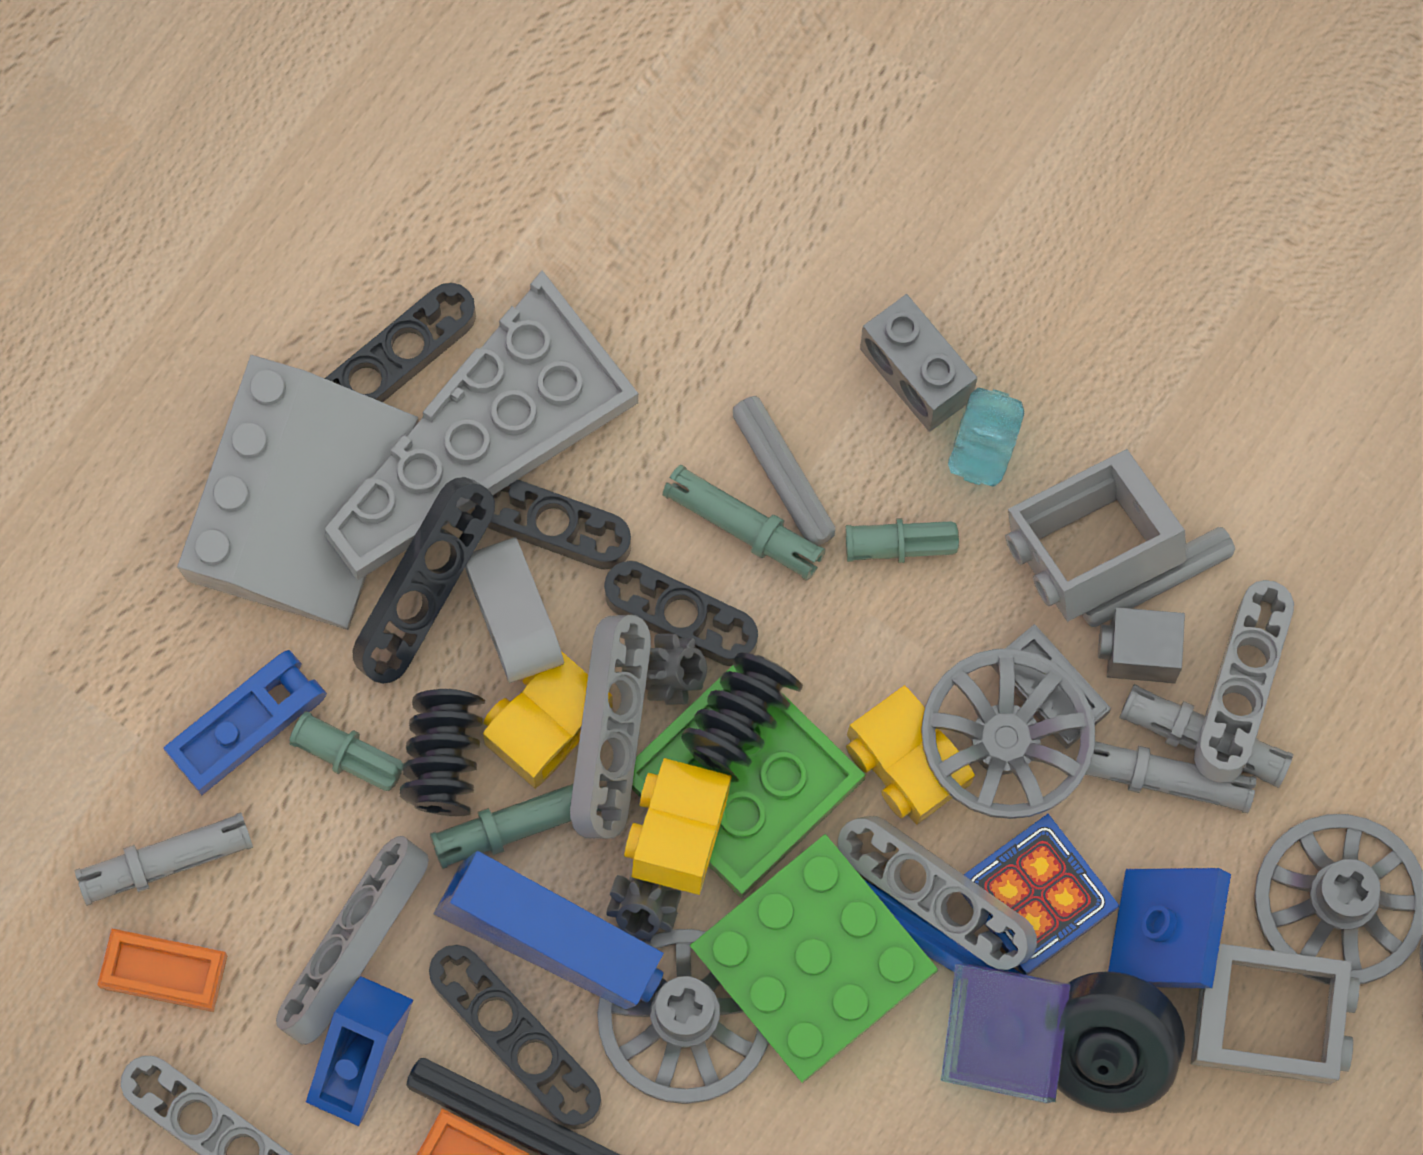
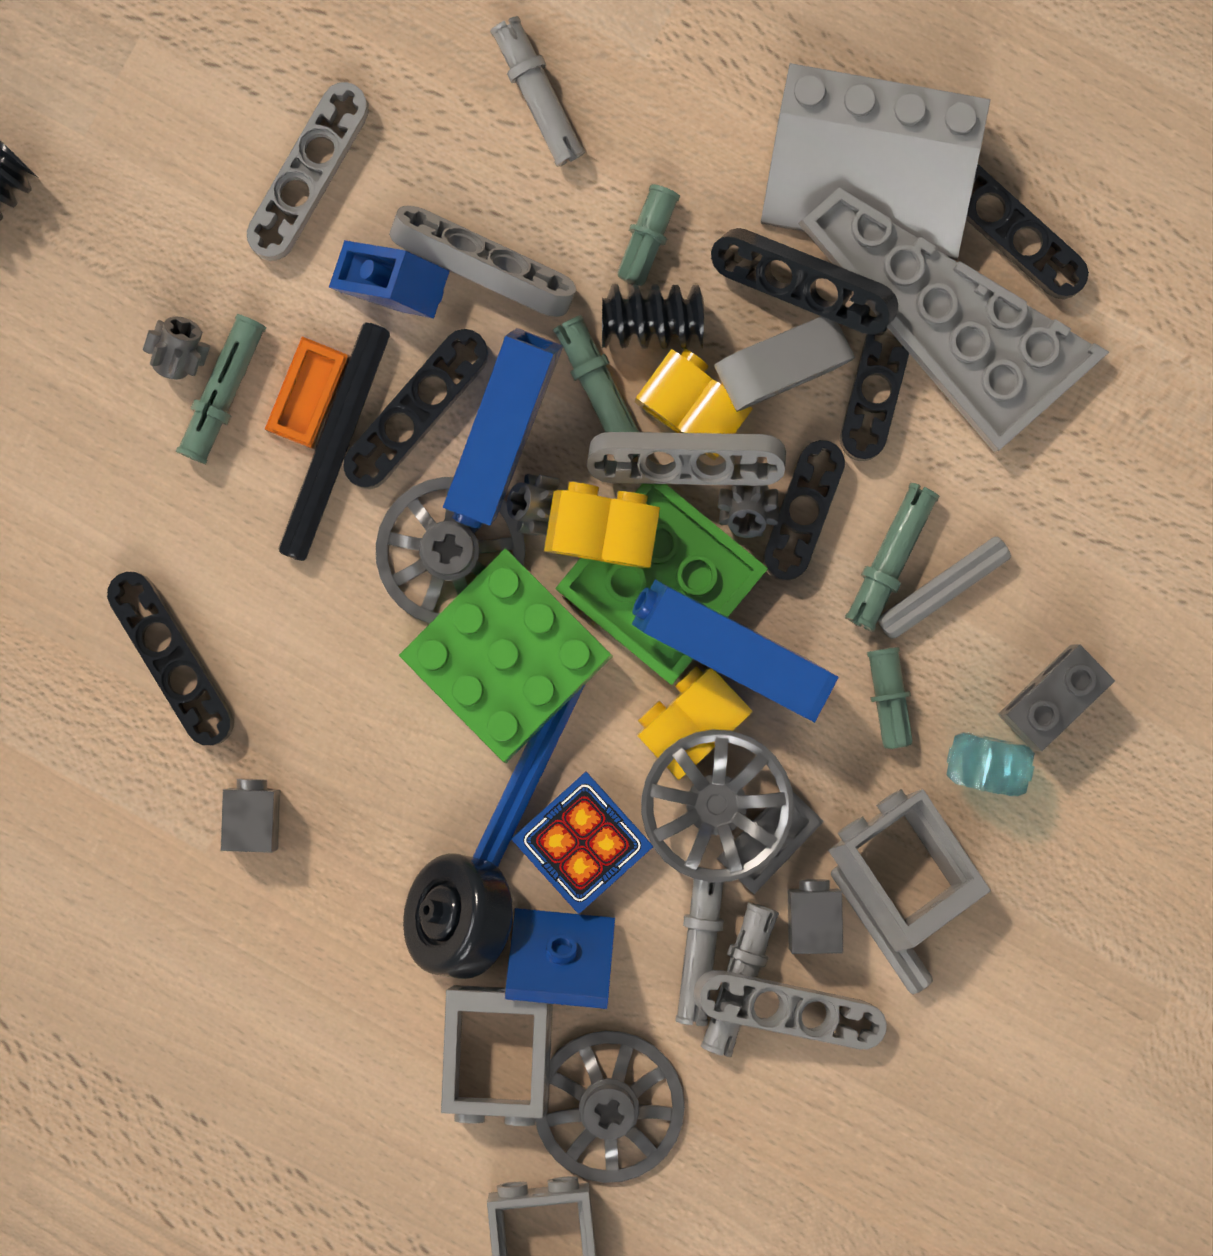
camera: 85 degrees right, 15 degrees up
(162, 970) = (443, 104): orange tile -> none
(243, 722) = (664, 142): blue plate -> none
(738, 712) = (707, 570): black piece -> none
(834, 691) = (733, 650): none -> blue slope
(940, 884) = (565, 751): light grey beam -> none
(1005, 1032) = (454, 824): clear light blue tile -> none

